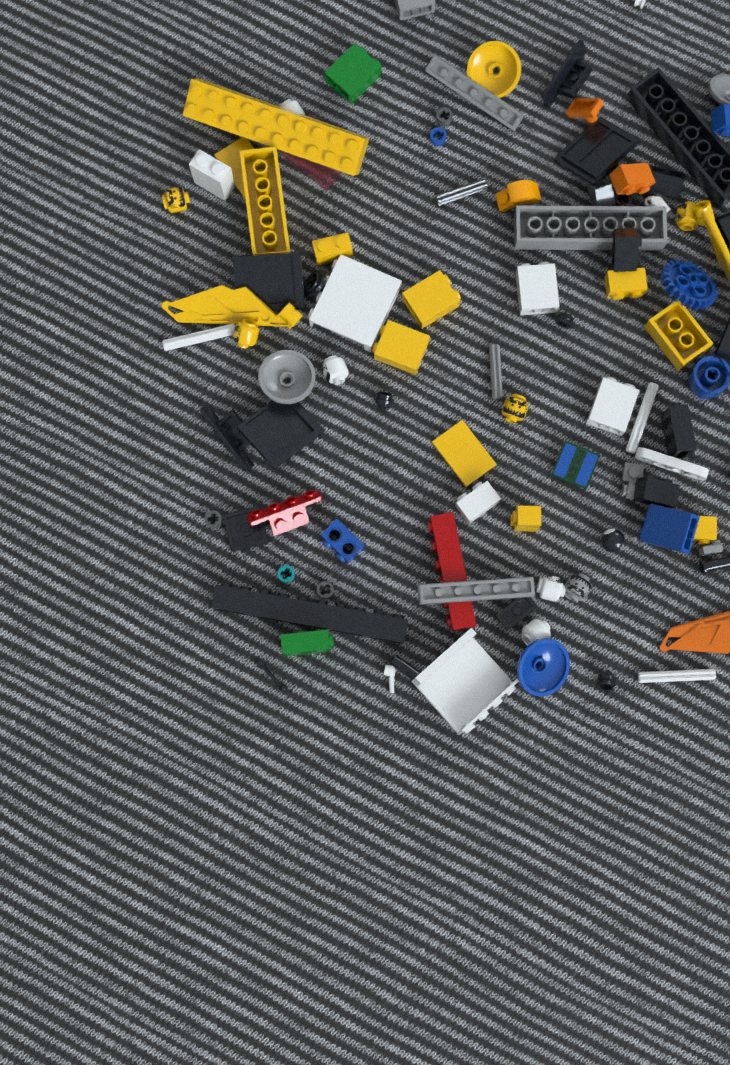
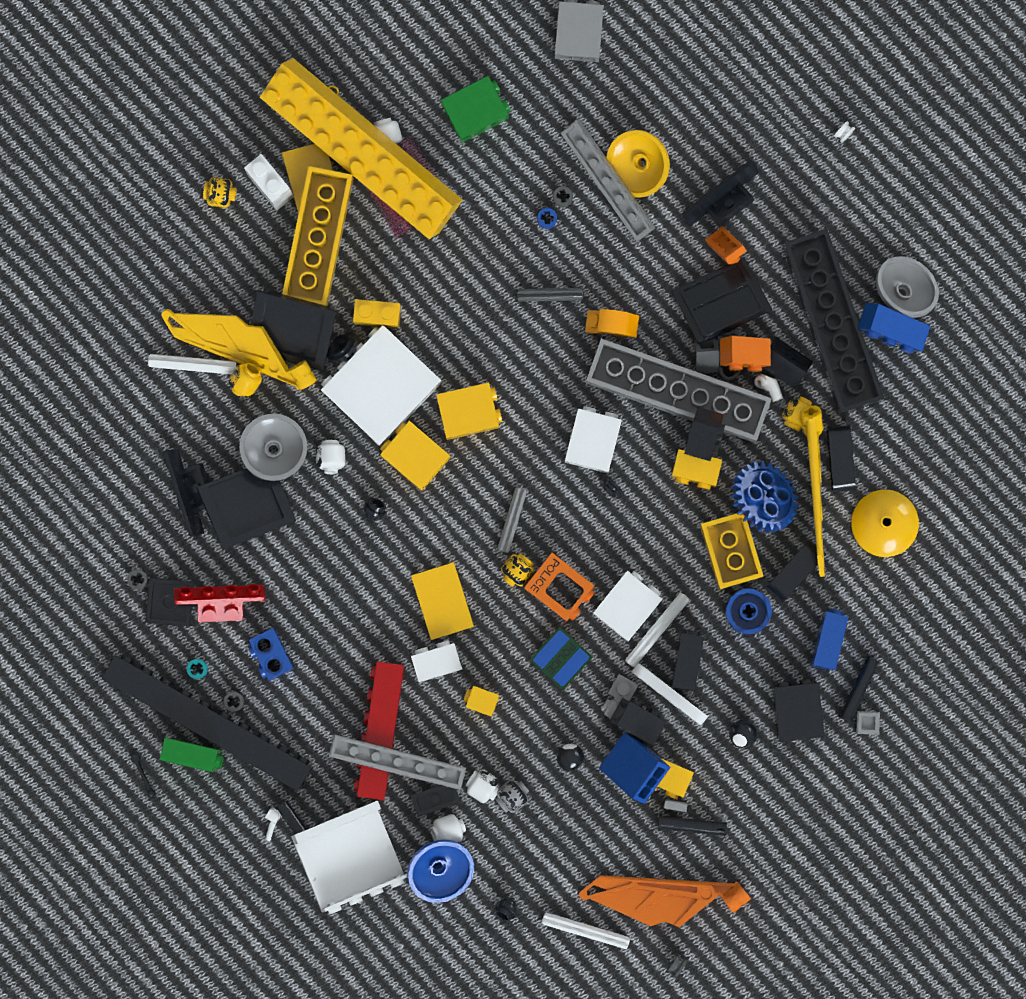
camera: 25 degrees right, 5 degrees up
(539, 404) = (546, 574): none -> orange window

